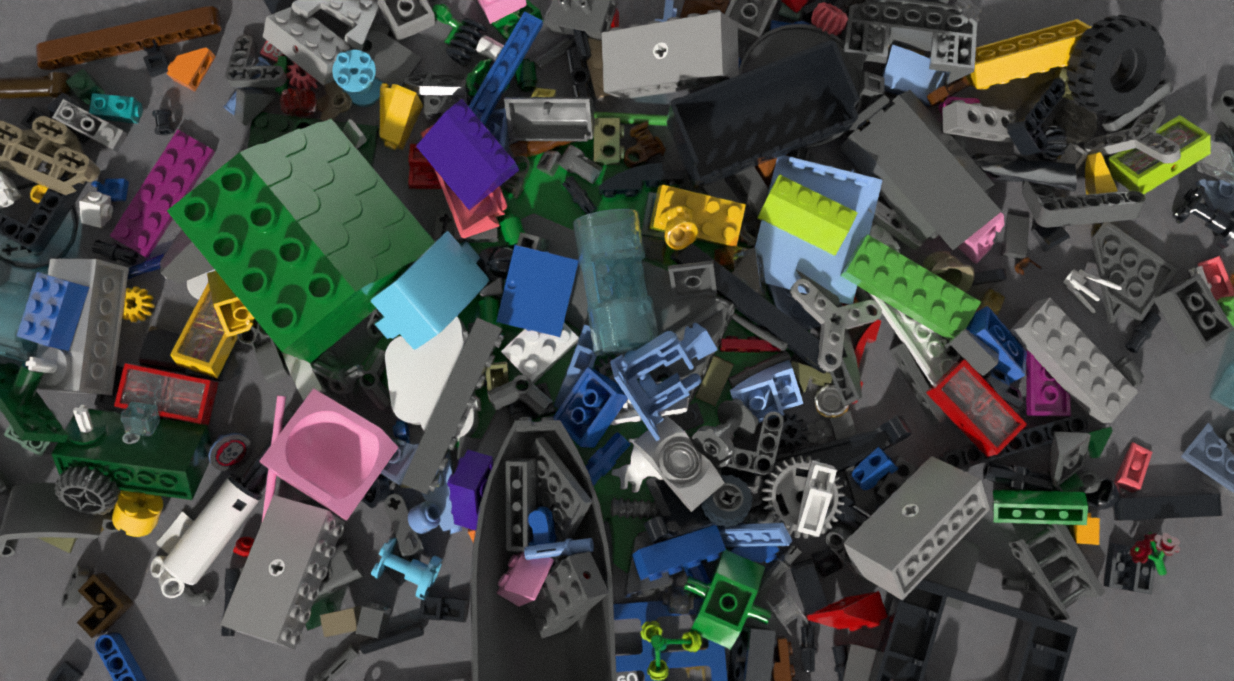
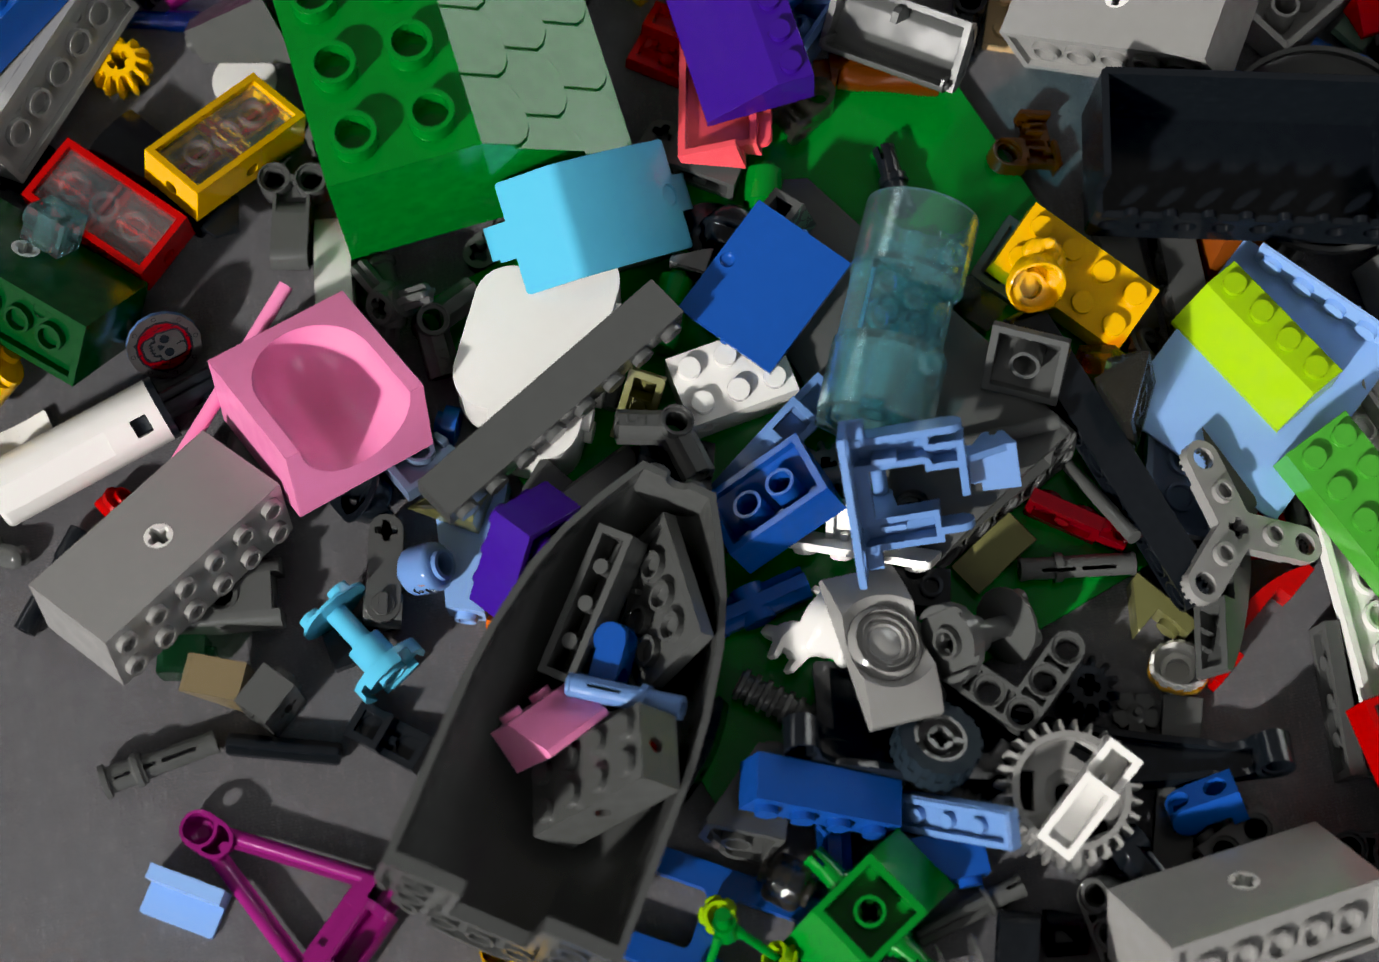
camera: 20 degrees right, 10 degrees down
(230, 310) = (274, 113): yellow slope -> none
(548, 162) = (867, 111): flat silver slope -> none
(575, 161) = (909, 124): dark grey piece -> none
(604, 141) = (969, 113): olive brick -> none
(631, 118) = (1022, 97): bright green piece -> none
(631, 180) = (989, 186): black slope -> none
(769, 391) = (1081, 600): light blue slope -> none

